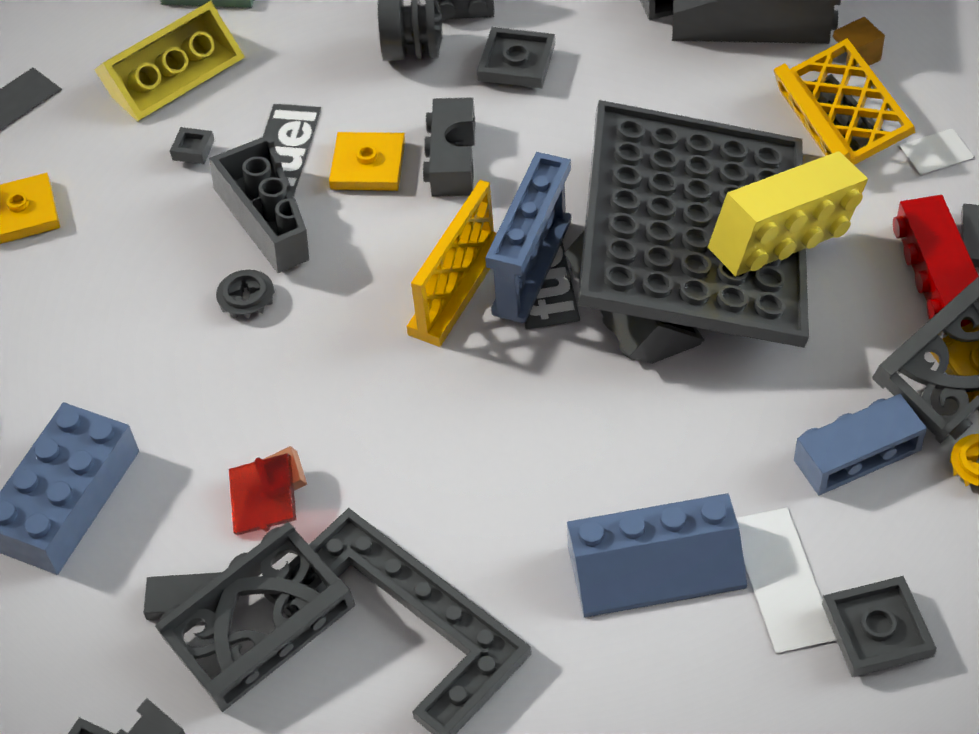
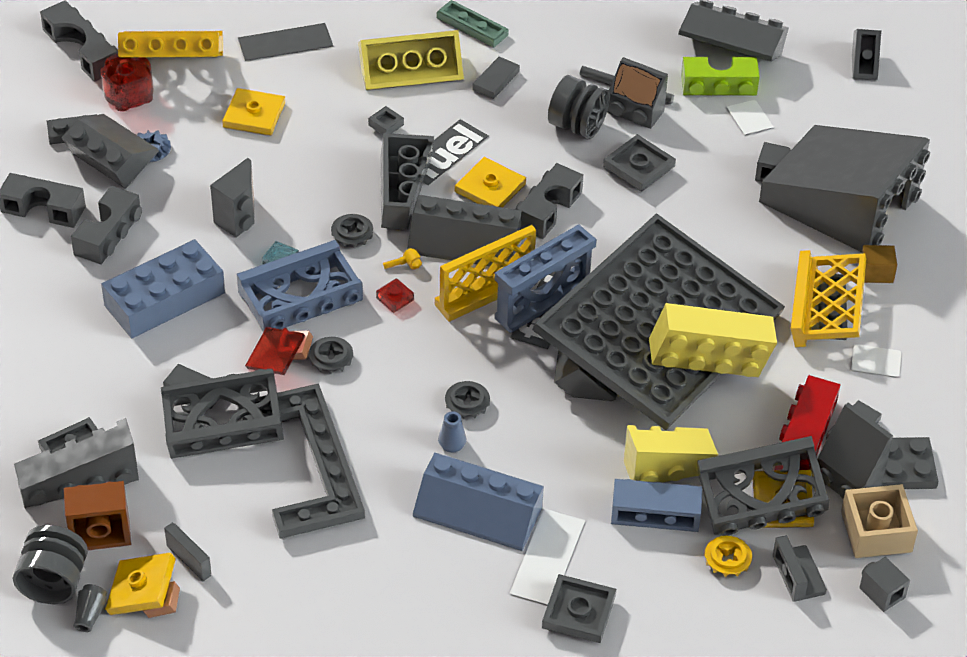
camera: 25 degrees right, 5 degrees down
(78, 326) = (234, 199): none -> dark grey slope
(179, 370) = (278, 251): none -> clear light blue tile
(245, 426) = (309, 266): none -> sand blue fence
(281, 38) = (496, 77): none -> dark grey tile
(338, 448) = (321, 349): none -> dark grey gear
(340, 291) = (410, 257): none -> yellow hand
(354, 347) = (395, 295): none -> clear red plate
(379, 229) = (455, 228): none -> dark grey slope
(545, 418) = (459, 392): none -> dark grey gear
(558, 484) = (452, 433): none -> sand blue cone
(825, 377) = (666, 454): none -> light yellow wedge

